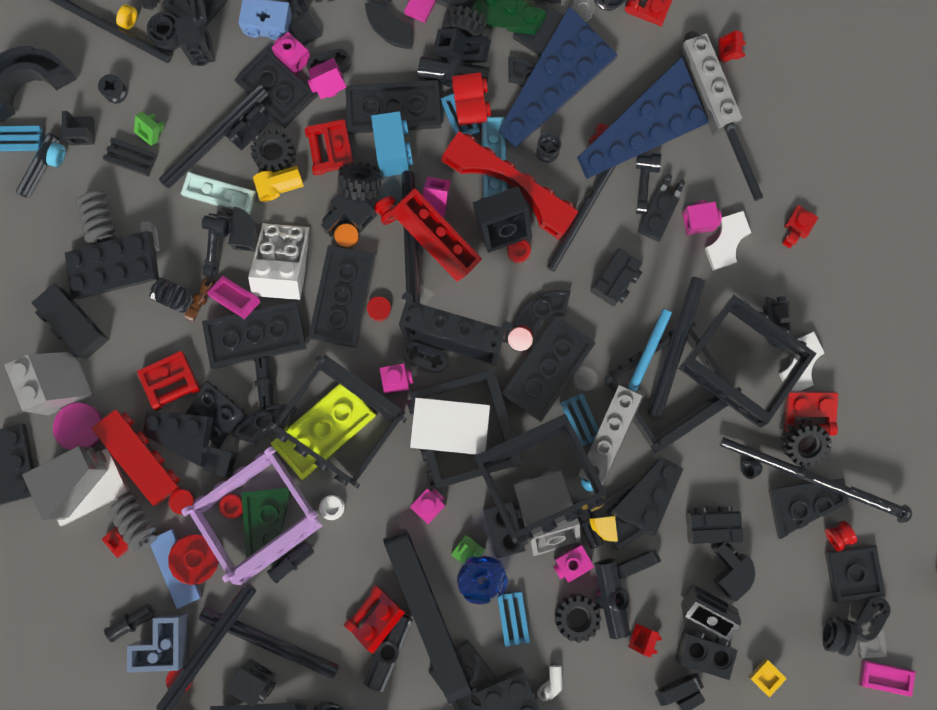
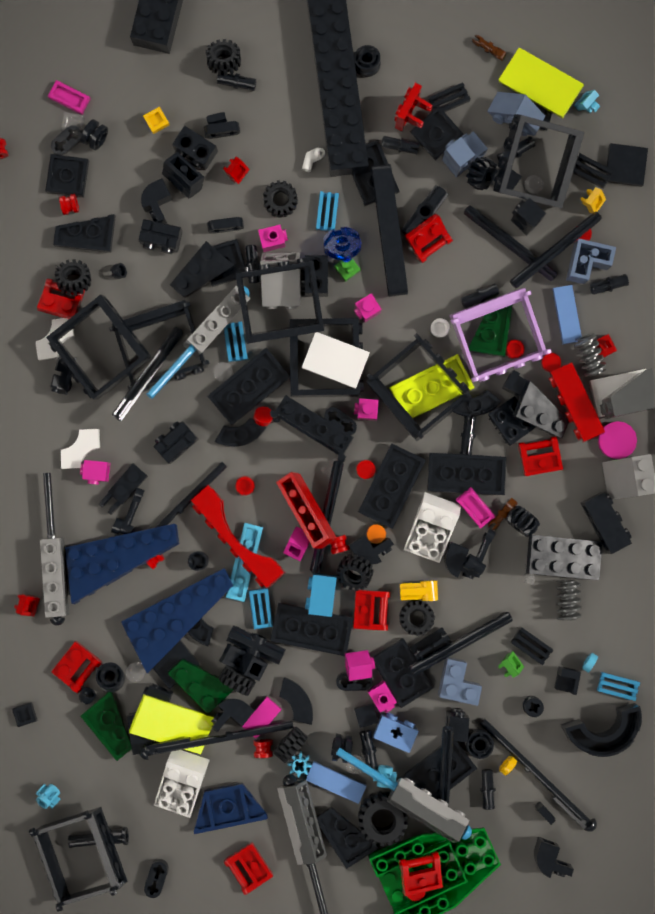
camera: 165 degrees left, 5 degrees up
(36, 167) = (606, 658): black axle -> none
(192, 560) = (552, 316): red tile -> none
(208, 86) = (454, 686): none -> sand blue brick
(217, 192) = (468, 596): light aqua tile -> none
(470, 100) = (249, 614): red brick -> none
(503, 219) = (251, 509): black brick -> none
(605, 527) = (241, 256): yellow tile -> none
(612, 598) = (251, 205): black piece -> none
(800, 225) = (19, 446): red plate -> none
(902, 513) = (19, 205): black bar -> none

